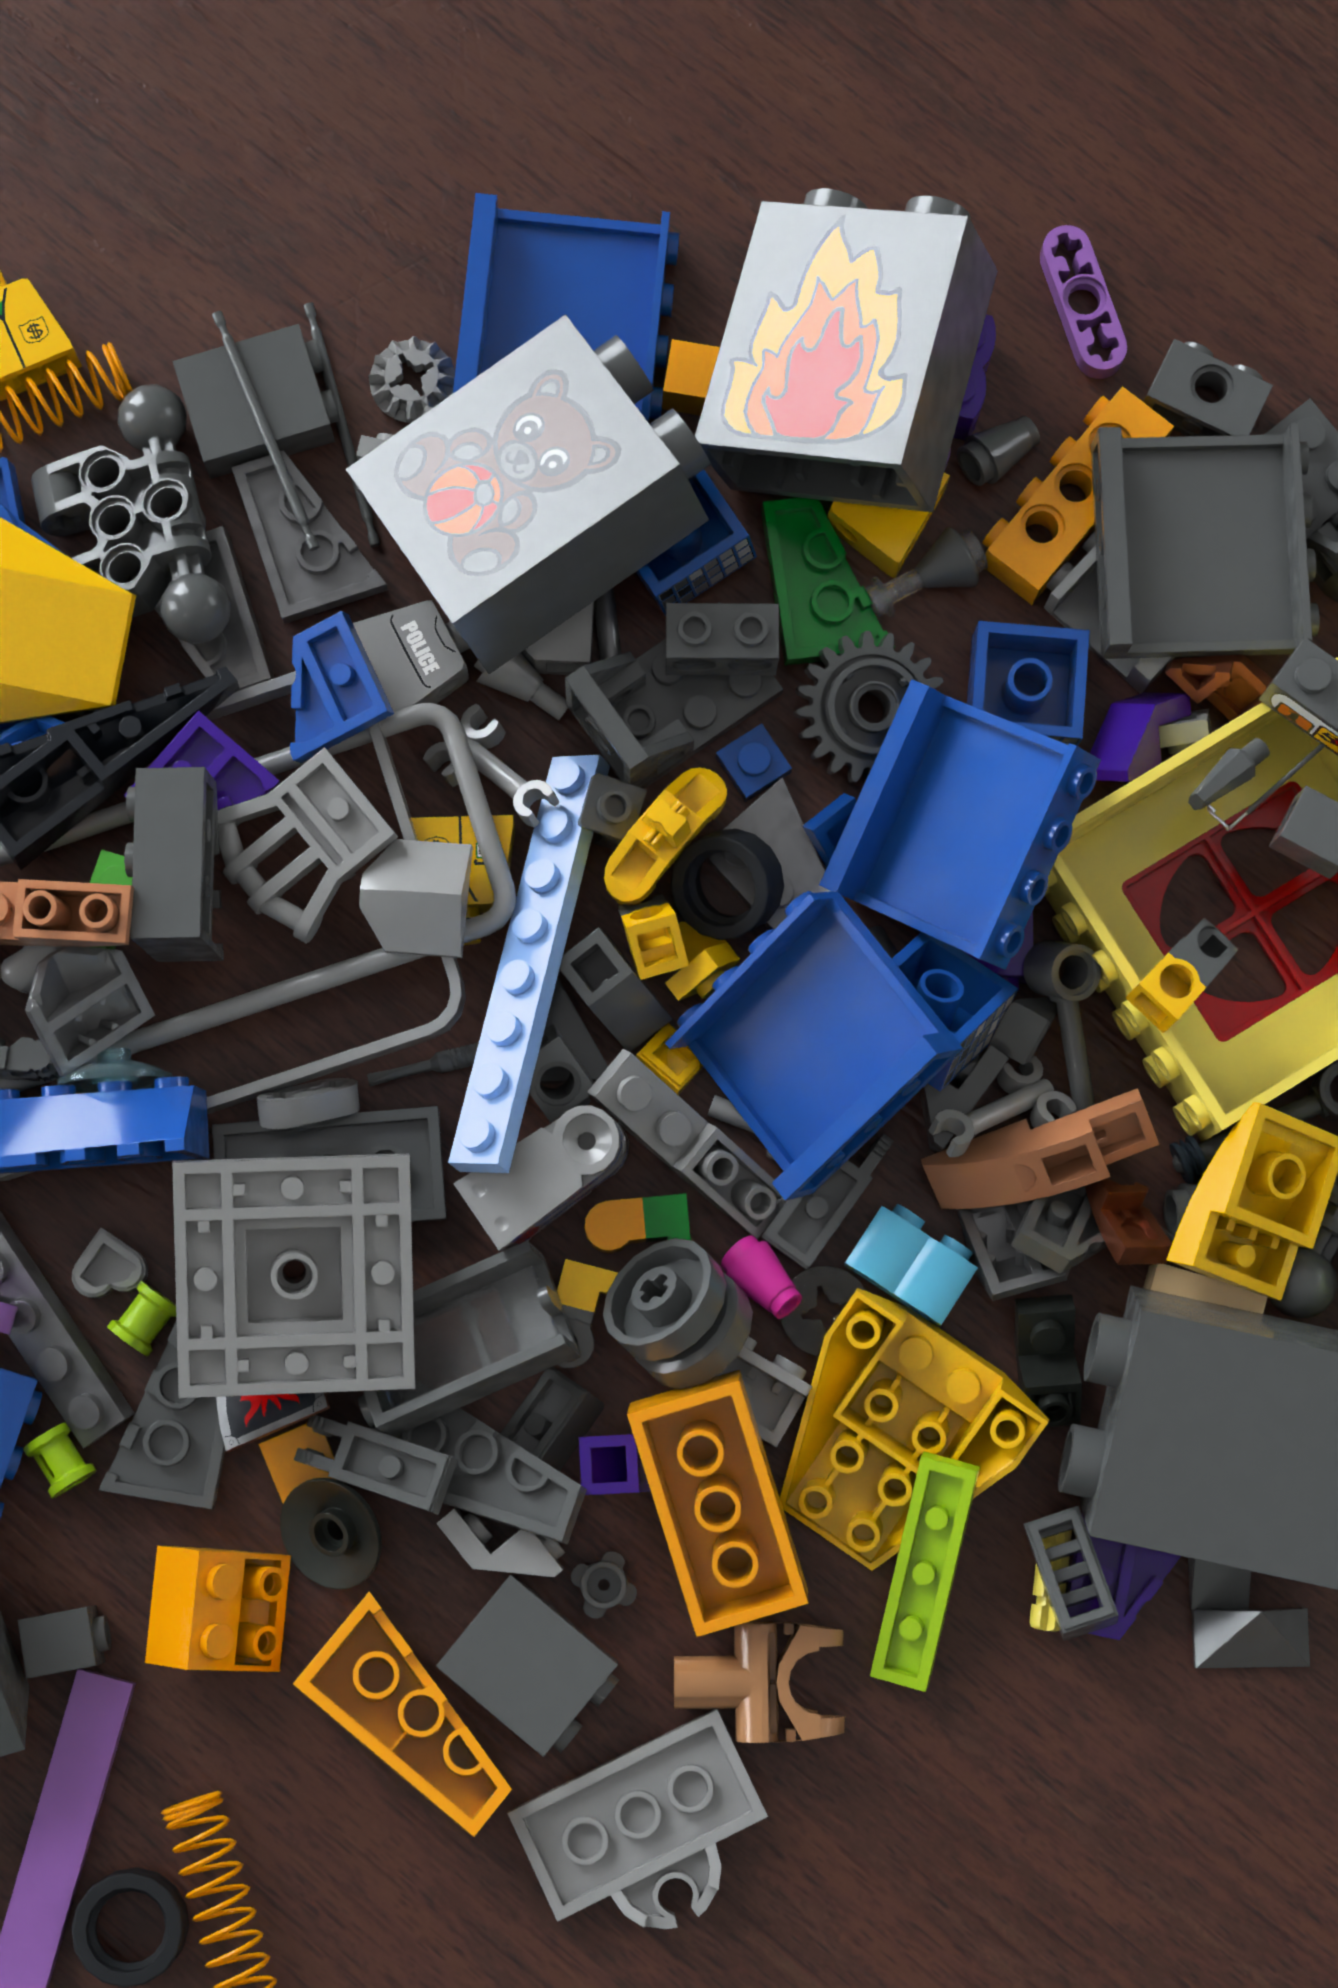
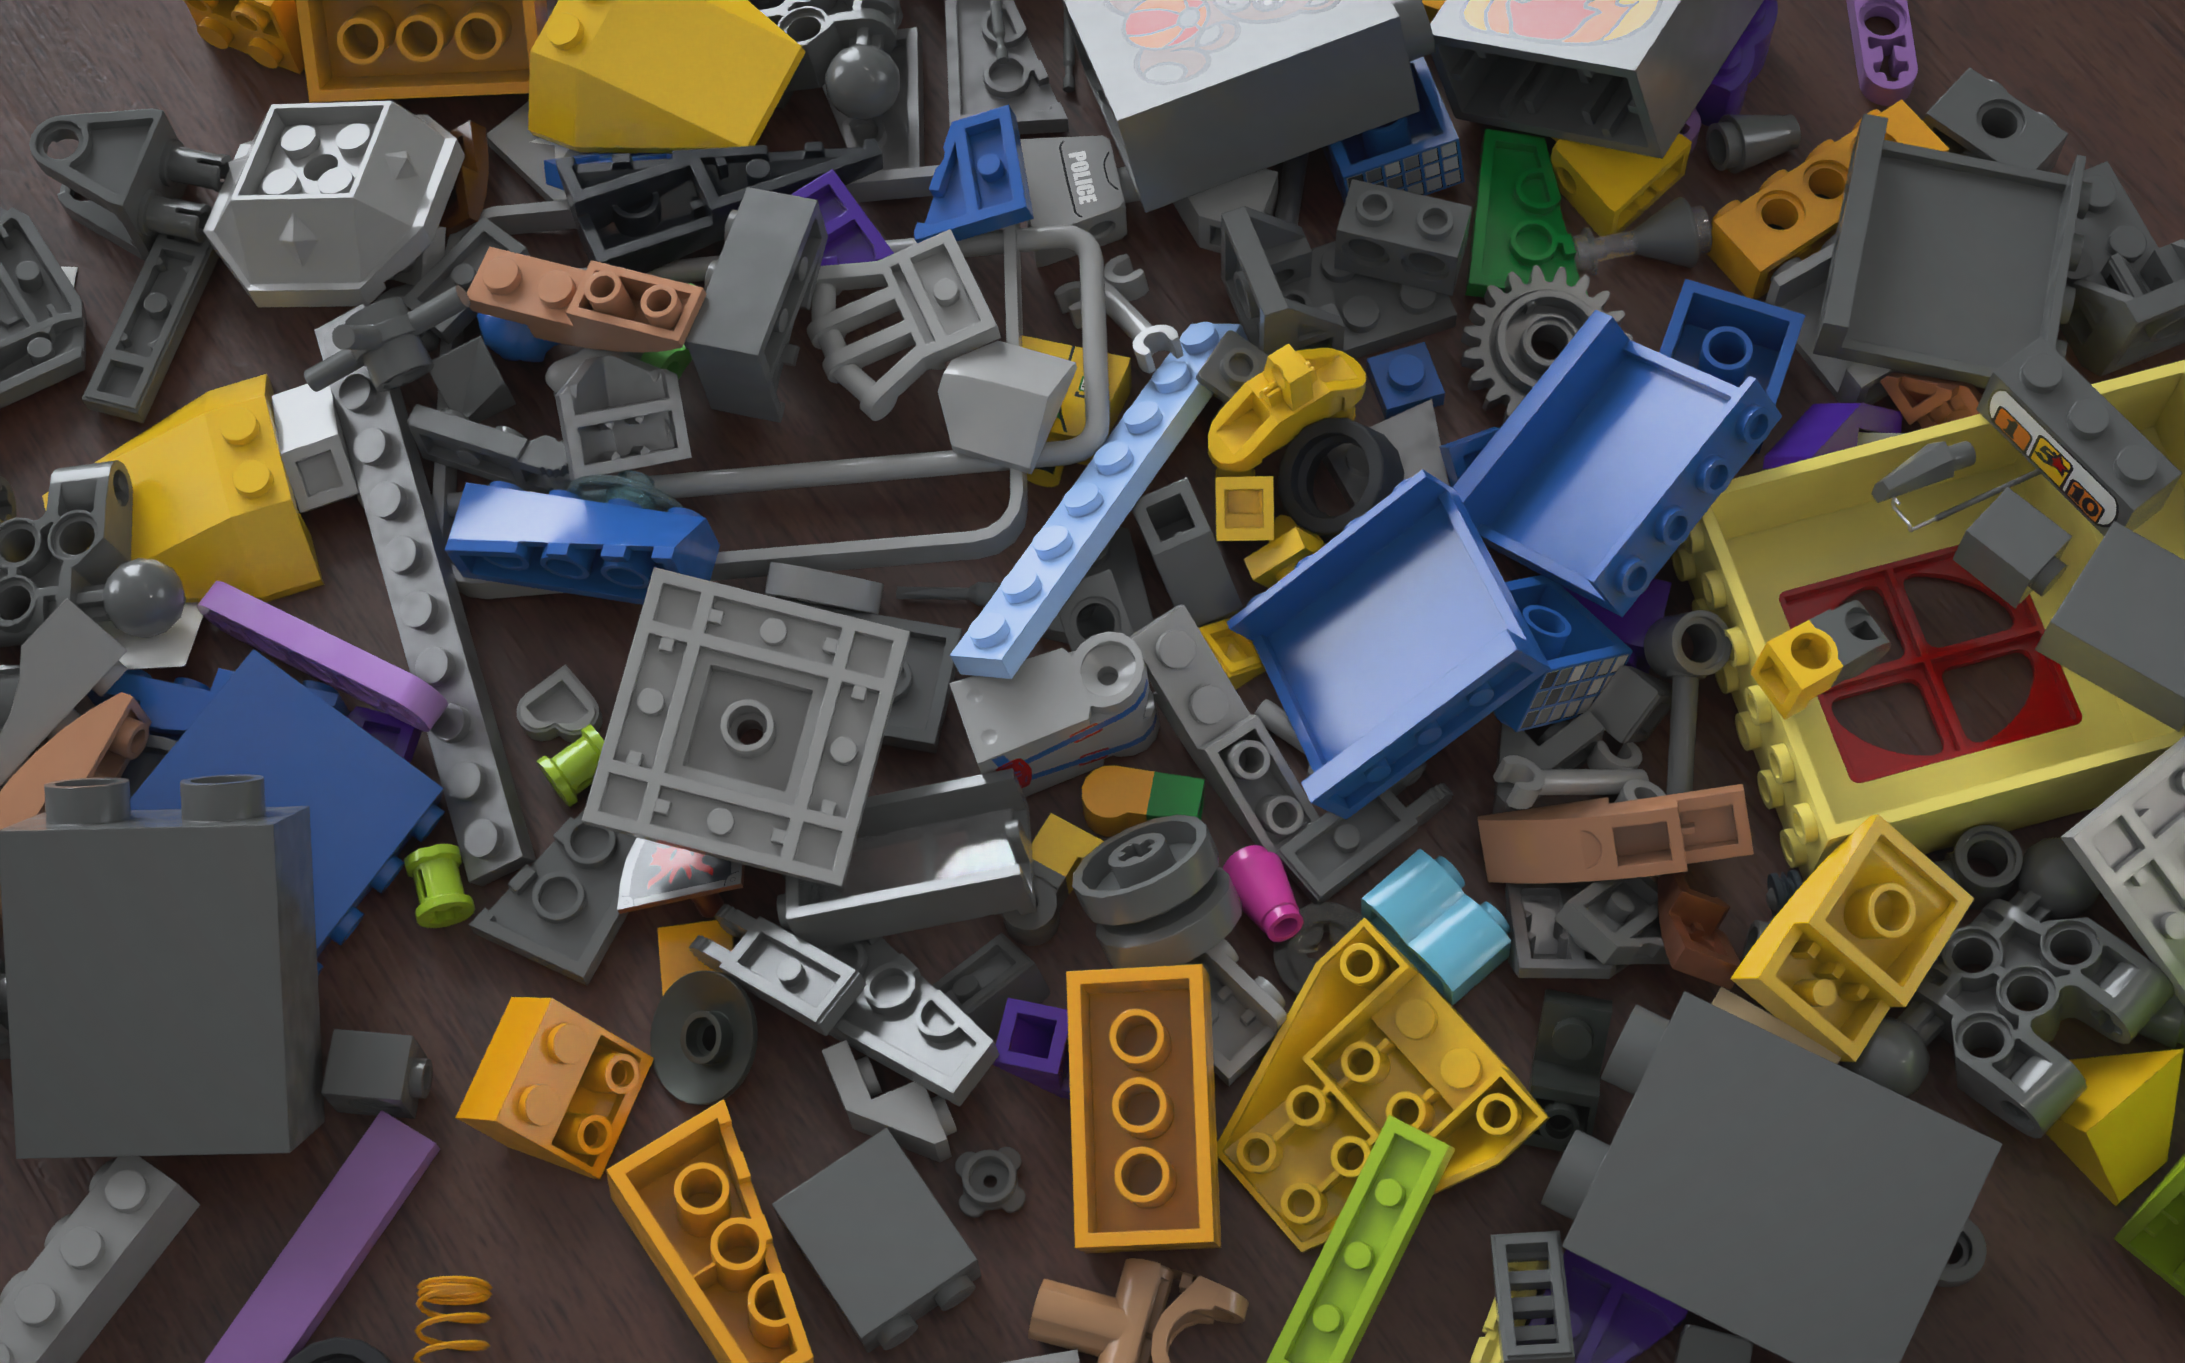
camera: 25 degrees right, 15 degrees down
(522, 681) = (1175, 237): light grey cone -> none

